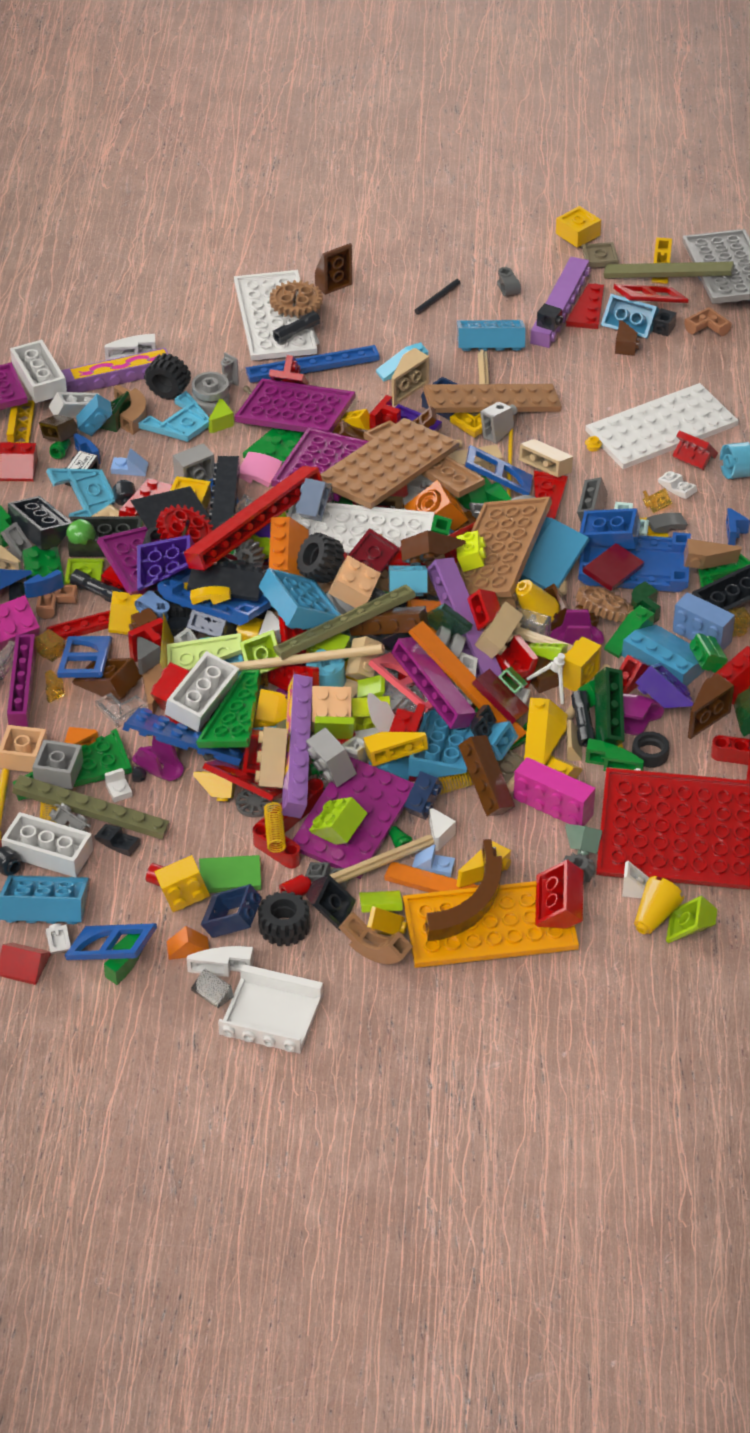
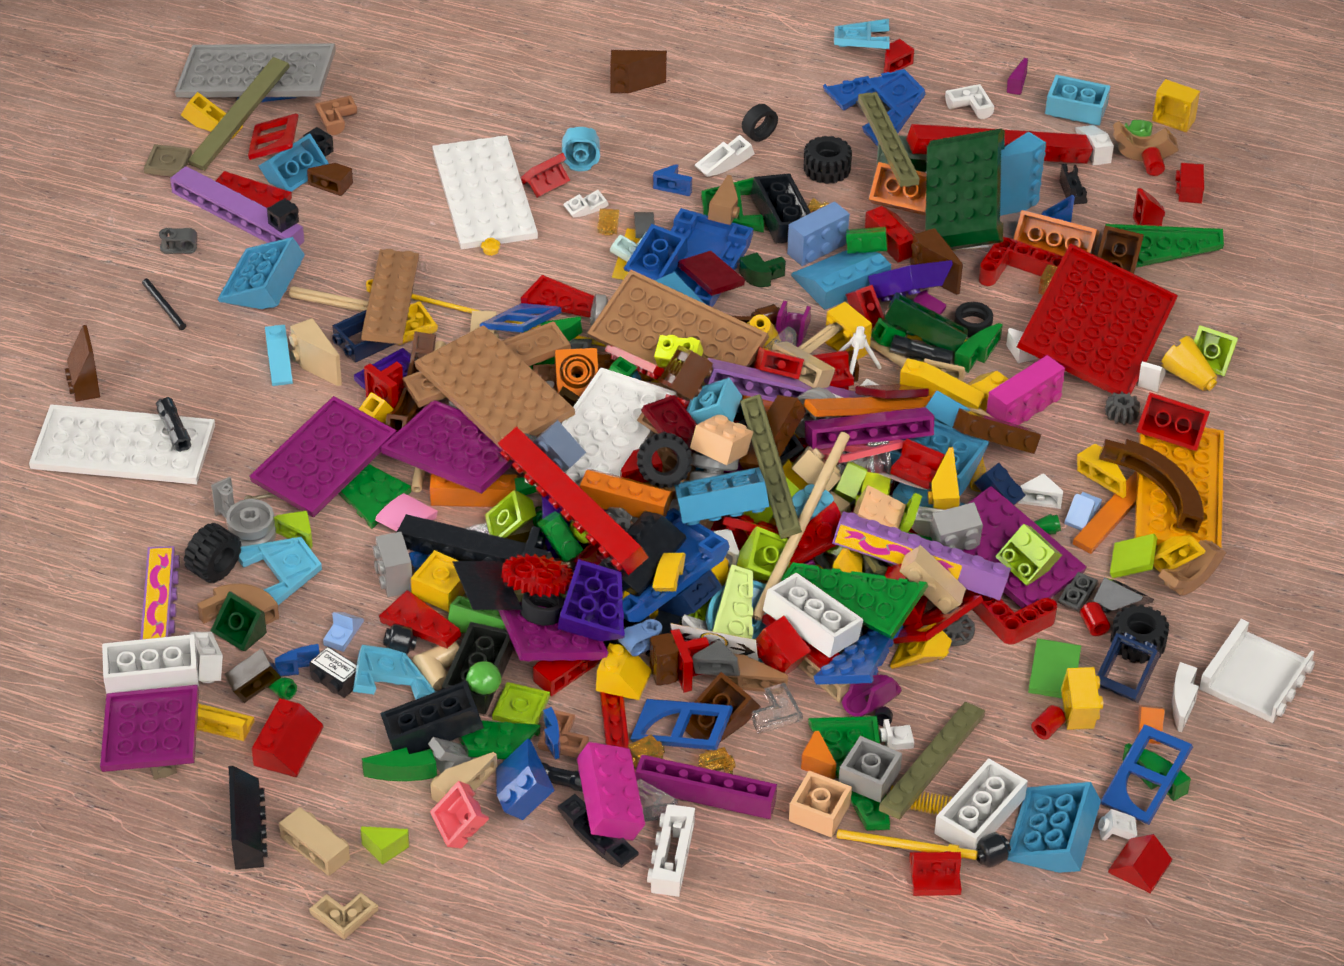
camera: 75 degrees left, 0 degrees up
(63, 815) = (947, 780): light grey hinge -> none
(93, 585) = (573, 685): black axle -> none
(94, 415) = (249, 634): dark azure brick -> none
(113, 838) = (977, 753): black slope -> none
(130, 346) = (119, 581): white slope -> none
(212, 988) = (1220, 710): clear smoke slope -> none
(267, 824) = (1021, 606): yellow piece -> none
(284, 297) = (119, 412): medium nougat gear -> none
(291, 372) = (261, 446): bracket -> none
(317, 362) = (237, 427): blue plate -> none
(383, 859) = (1076, 543): tan axle -> none
(449, 618) = (796, 384): clear green tile -> none
(483, 721) = (941, 414): black slope -> none
(497, 421) = (429, 292): light grey torso -> none
(510, 683) = (867, 378): green piece -> none
(545, 458) = (509, 281): tan brick -> none
(548, 650) = (830, 341): lime slope -> none
(578, 226) = (114, 160): yellow container -> none
(583, 838) = (1087, 392): sand green slope -> none
(592, 497) = (596, 265): dark grey brick -> none
(603, 603) = (762, 294): medium nougat gear -> none
(637, 619) = (800, 290): green slope -> none

